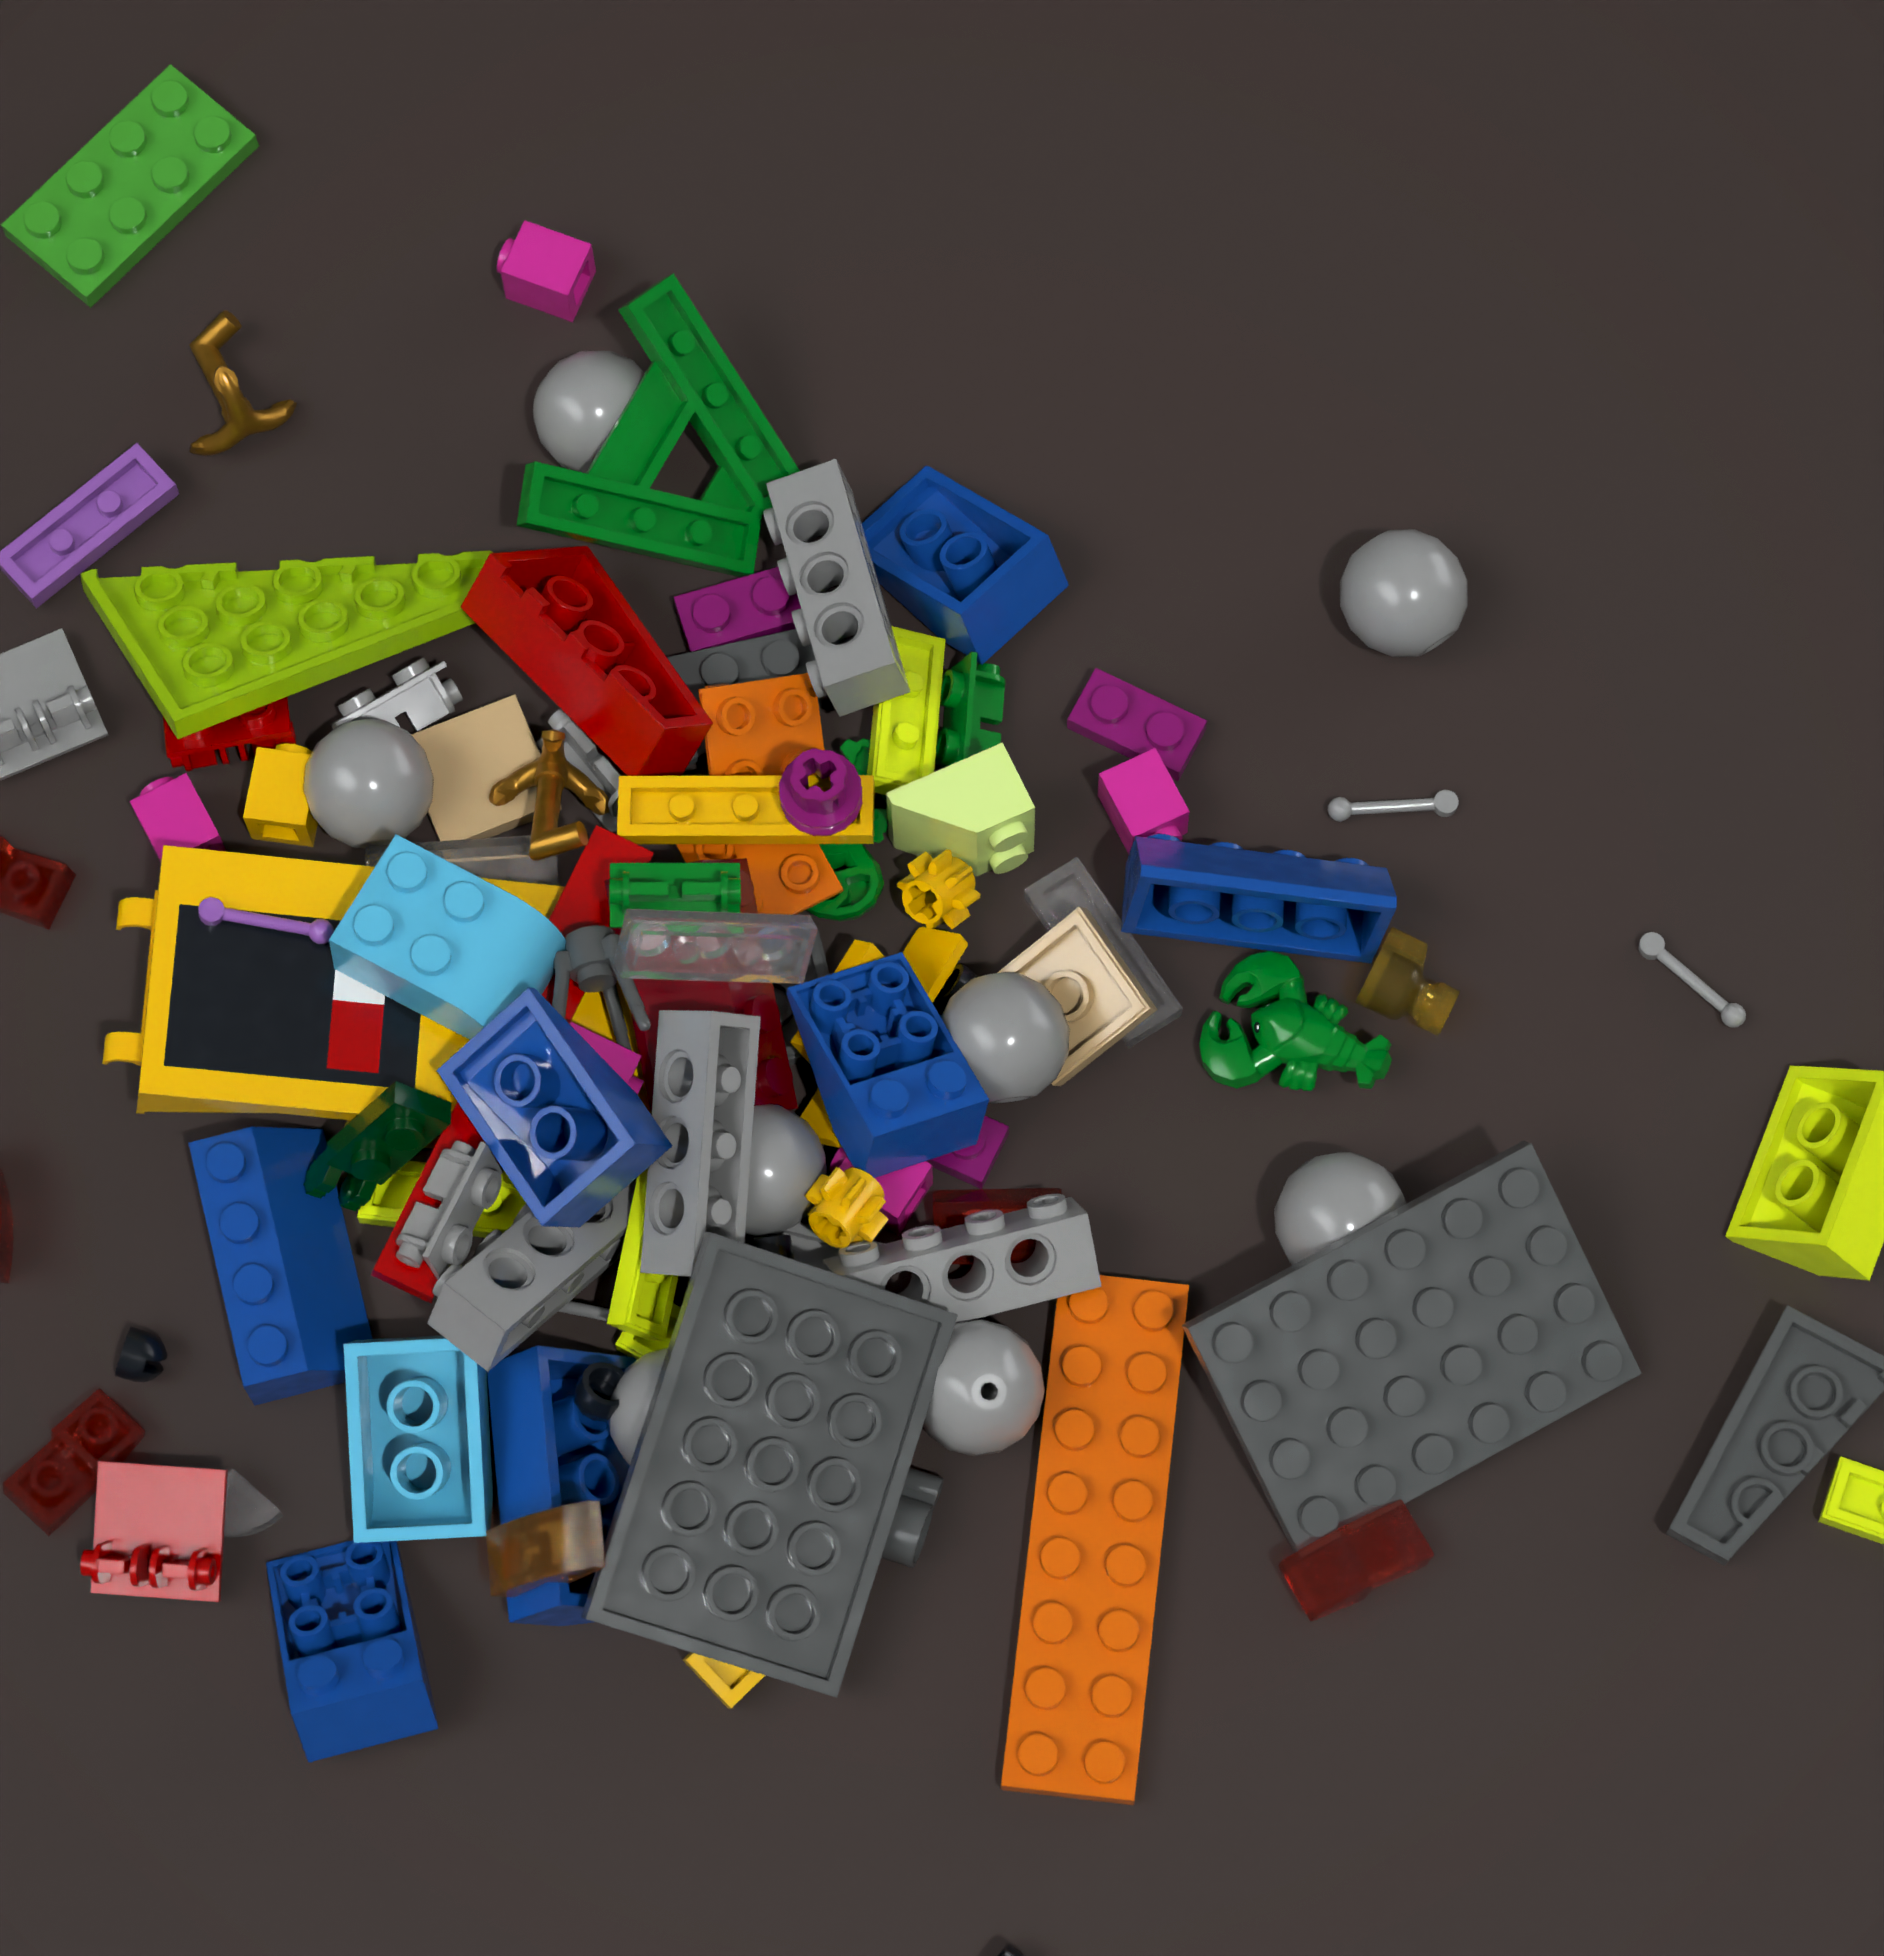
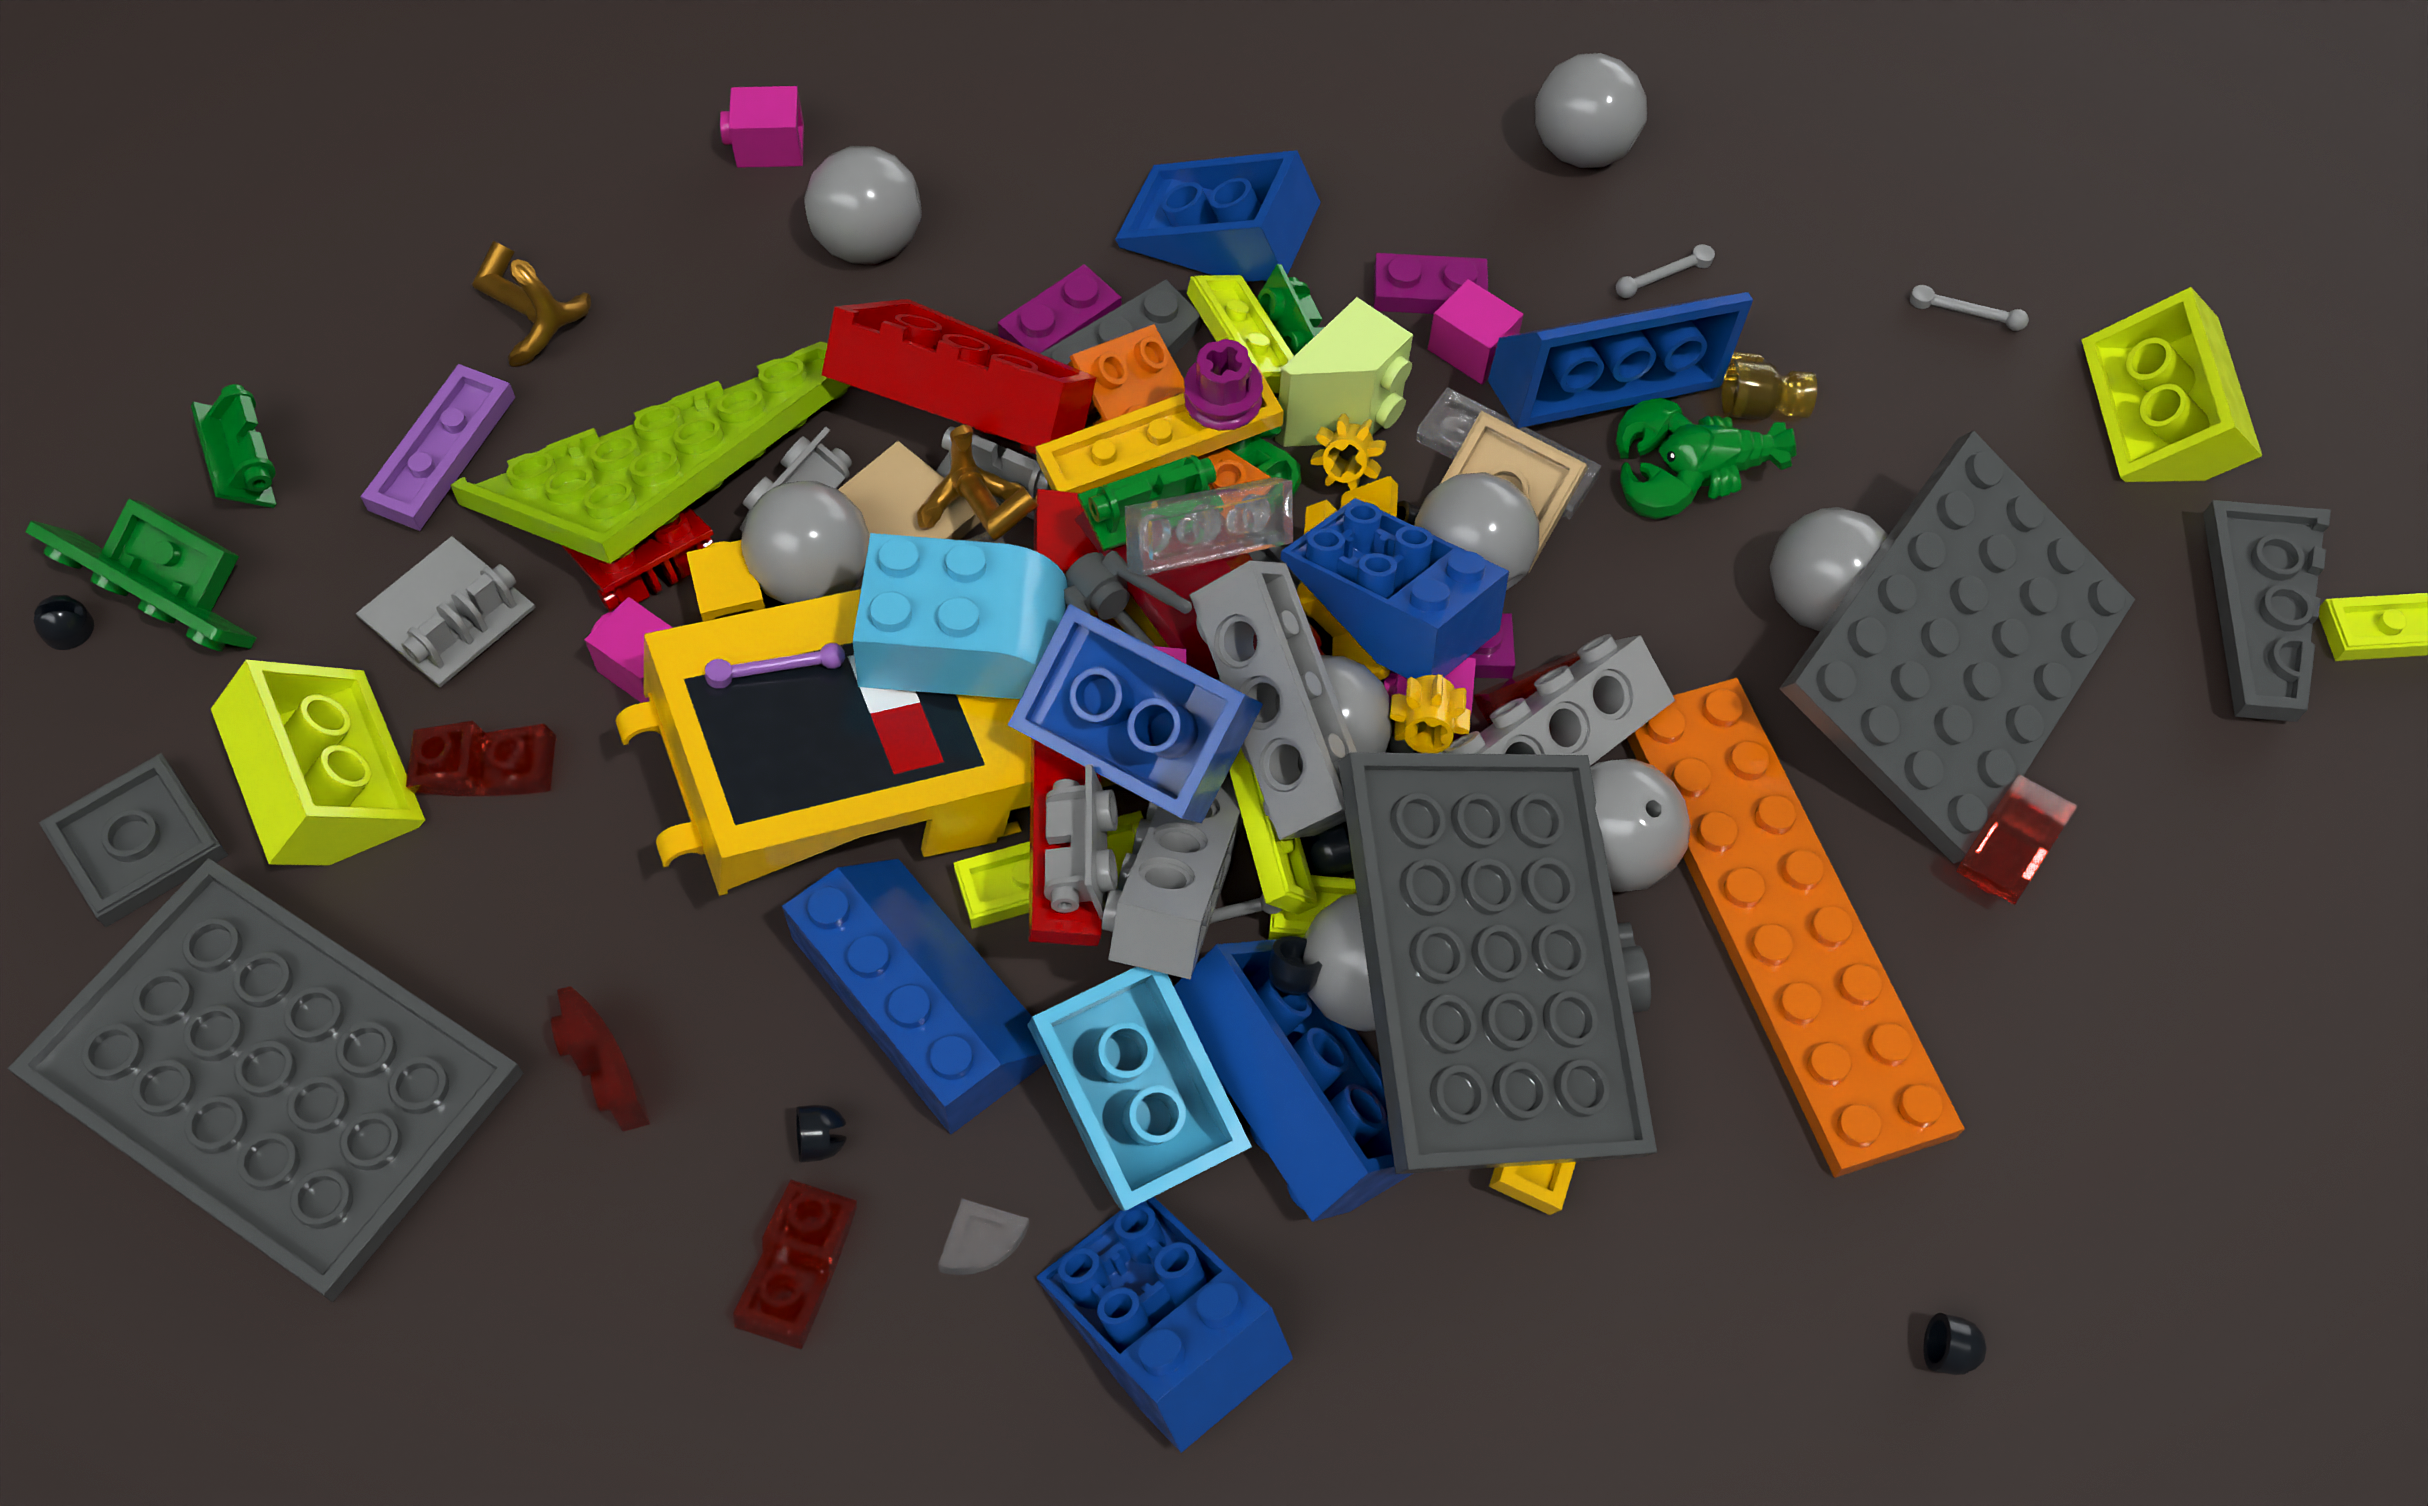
camera: 30 degrees left, 10 degrees down
(130, 185) = (363, 189): bright green plate -> none
(157, 1531) = (917, 1291): hinge -> none
(378, 1144) = (970, 829): dark green hinge -> none
(545, 1548) = (1326, 1123): clear orange slope -> none
(683, 384) = (912, 243): green plate -> none
(870, 664) = (1141, 254): light grey brick -> none

